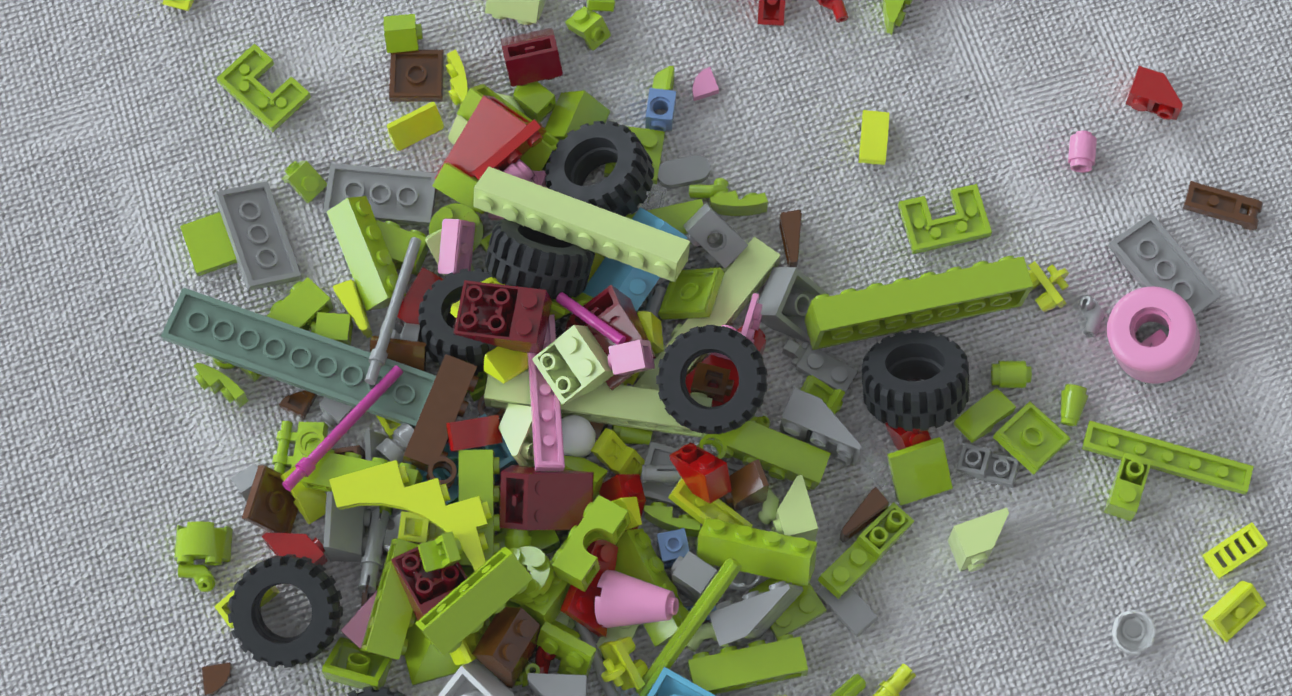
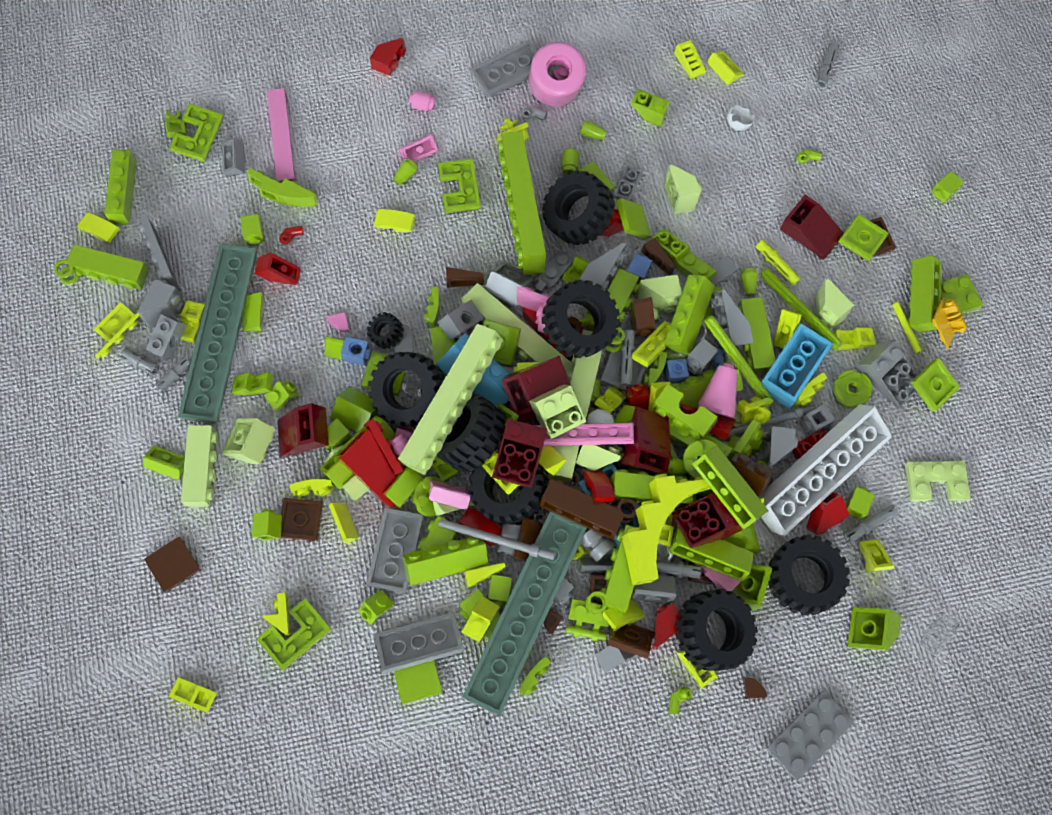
camera: 90 degrees left, 0 degrees up
(203, 542) = (655, 696): lime cylinder -> none
(279, 70) = (282, 619): none -> neon yellow slope
(288, 303) = (480, 619): none -> neon yellow slope
(307, 465) = (619, 602): dark pink bar -> none
(440, 552) = (692, 508): lime bracket -> none
(590, 319) = (526, 395): dark pink bar -> none
(631, 357) = (560, 370): bright pink brick -> none
(694, 153) = (378, 324): none -> black tyre
(702, 472) = (634, 341): red slope -> none
(708, 191) = (421, 326): lime arm -> none
(838, 486) = (640, 266): none -> medium blue brick
(840, 656) = (749, 280): none -> lime cone
(957, 142) = (405, 171): none -> lime cone
(1000, 157) = (419, 149): none -> bright pink slope
(1031, 437) = (613, 156): lime tile -> none
(1169, 457) = (629, 86): lime plate -> none
(1222, 205) = (468, 32): reddish brown plate -> none

